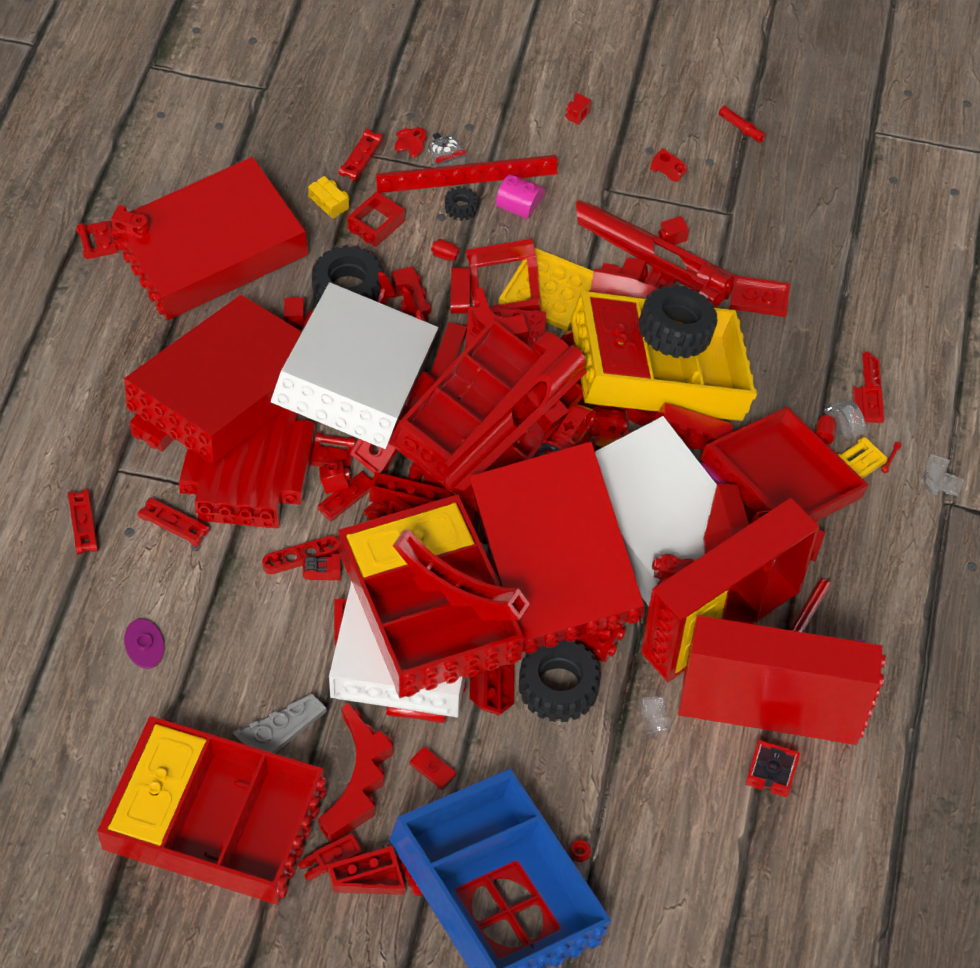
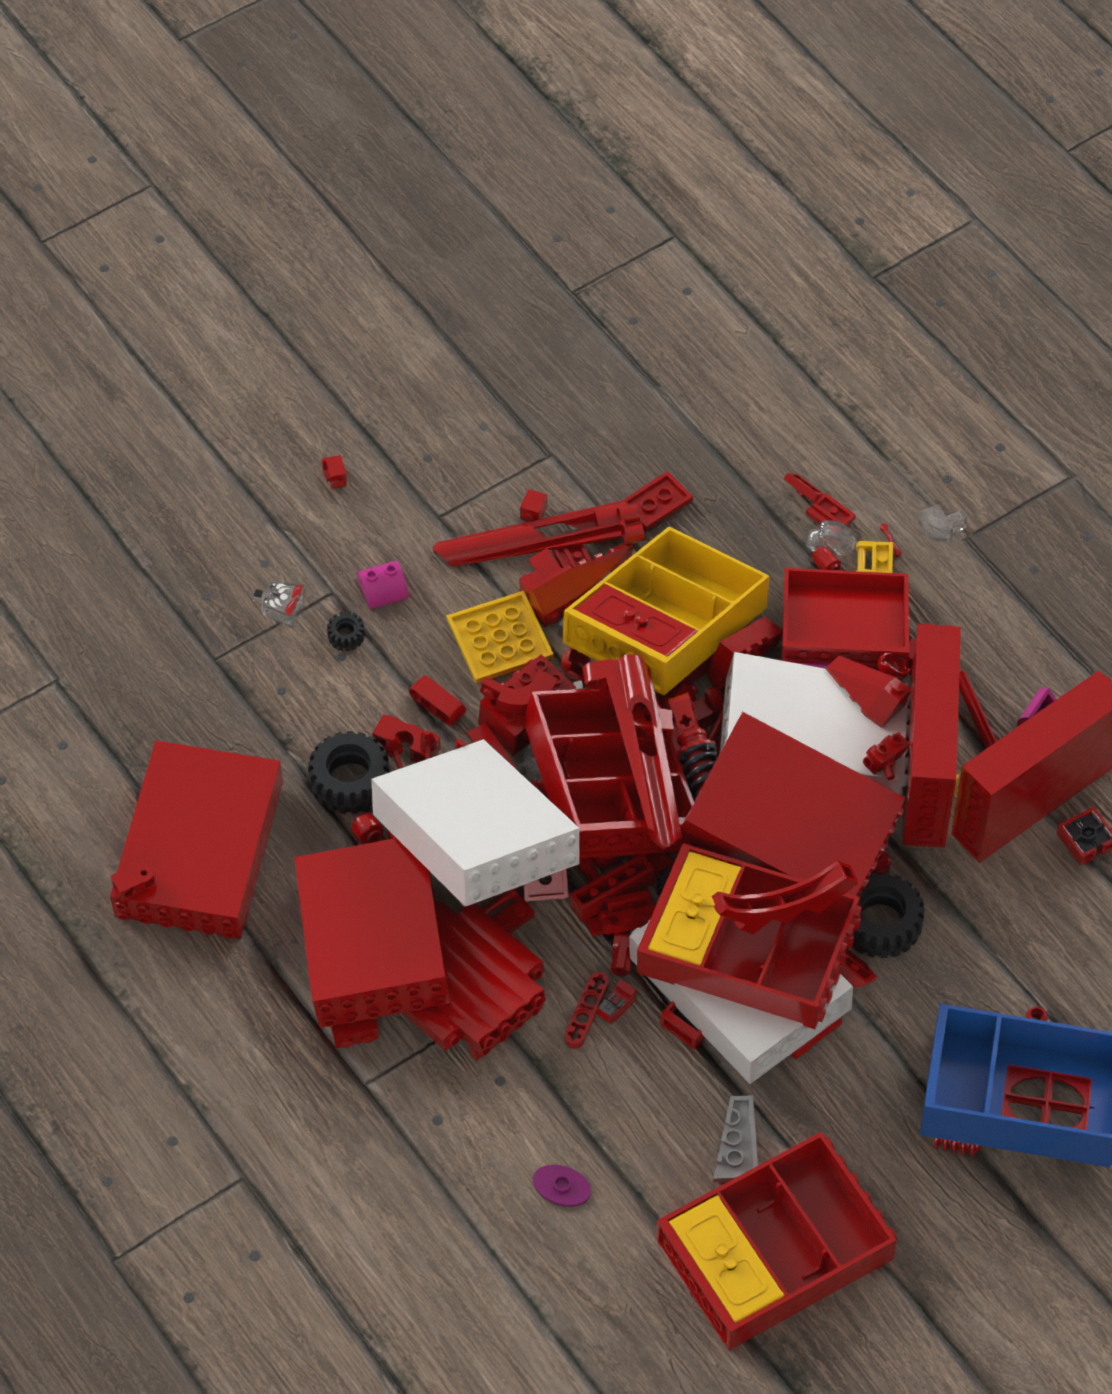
camera: 45 degrees left, 0 degrees up
(82, 521) = (395, 1146): red plate -> none
(103, 239) = (100, 923): red plate -> none
(173, 521) = (462, 1078): red plate -> none
(294, 311) = (336, 835): red brick -> none
(328, 197) = (238, 720): yellow brick -> none
(334, 477) = (539, 928): red brick -> none
(339, 850) = (889, 1186): red hinge -> none
(344, 499) = (560, 936): red tile -> none
(356, 804) = (839, 1112): red arch -> none
(361, 155) = (213, 664): red plate -> none
(367, 874) = (931, 1171): red wedge -> none
(388, 208) = (298, 687): red window -> none
(411, 142) = (237, 618): red plate -> none
(432, 768) = (873, 1063): red plate -> none
(445, 250) = (384, 679): red brick -> none
(465, 173) = (319, 604): red plate -> none
(508, 253) = (439, 637): red piece -> none
(654, 714) = (969, 877): clear brick -> none
(668, 165) = (462, 456): red leg -> none
(672, 337) = (661, 552): black tyre -> none
(746, 127) = (472, 373): red pin -> none

